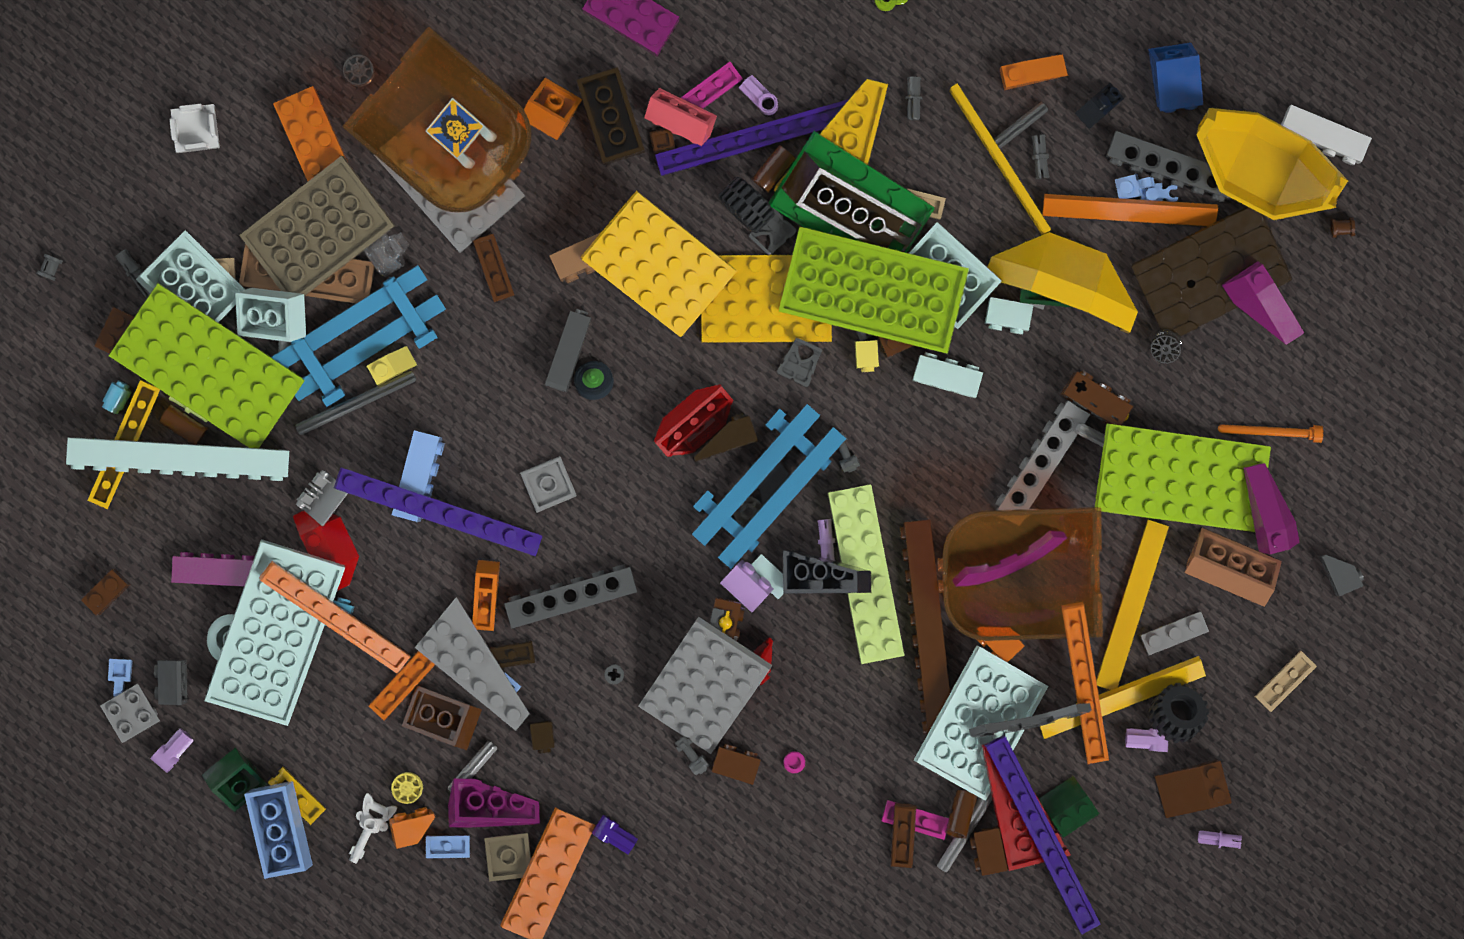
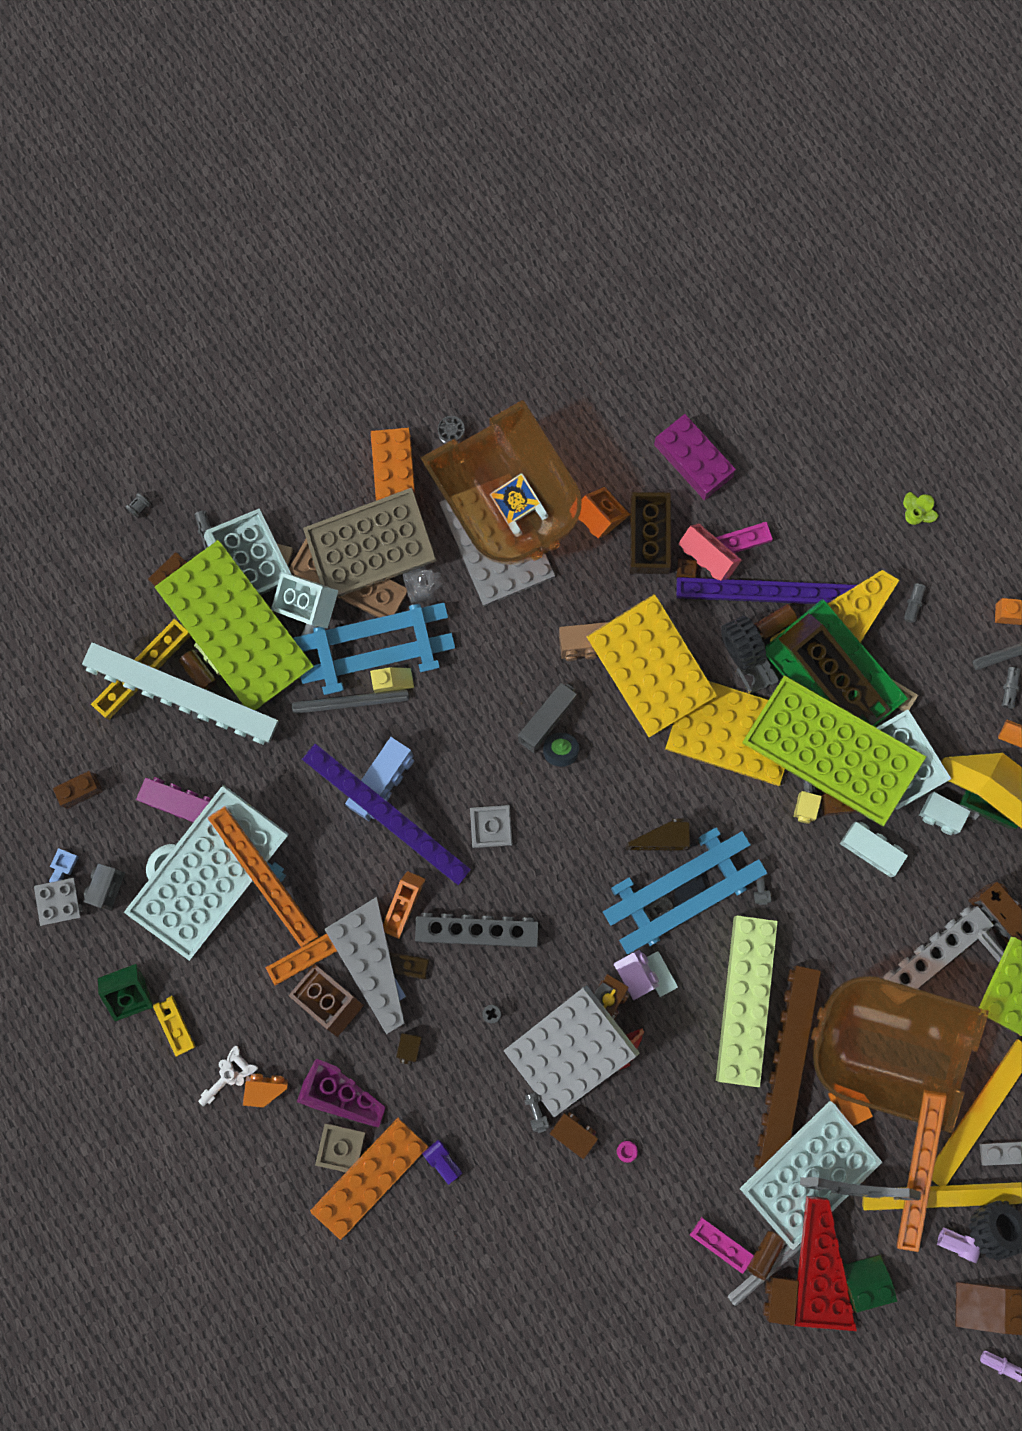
camera: 20 degrees right, 10 degrees down
(116, 397) = (151, 629): medium azure brick -> none
(169, 753) = (78, 949): lavender piece -> none
(194, 128) = (299, 433): white panel -> none
(278, 829) = (144, 1051): light blue brick -> none
(321, 498) = (291, 772): light grey hinge -> none
(328, 542) = (285, 808): red wedge -> none
(407, 787) = (272, 1053): light yellow wheel -> none
(448, 846) = (289, 1119): light blue plate -> none
(477, 762) = (343, 1051): light grey axle -> none
(493, 268) = (507, 627): reddish brown plate -> none
(694, 421) = (637, 813): red wedge -> none
(758, 94) = (782, 557): lavender piece -> none
(799, 369) = (741, 799): dark grey piece -> none
(817, 575) = (706, 988): black wedge -> none
(826, 540) = (719, 959): lavender pin -> none
(903, 835) = (706, 1256): reddish brown tile -> none
(999, 159) = (975, 678): yellow tile -> none
(1011, 564) = (855, 1036): magenta tile -> none
(1042, 834) = (838, 1303): dark purple plate -> none

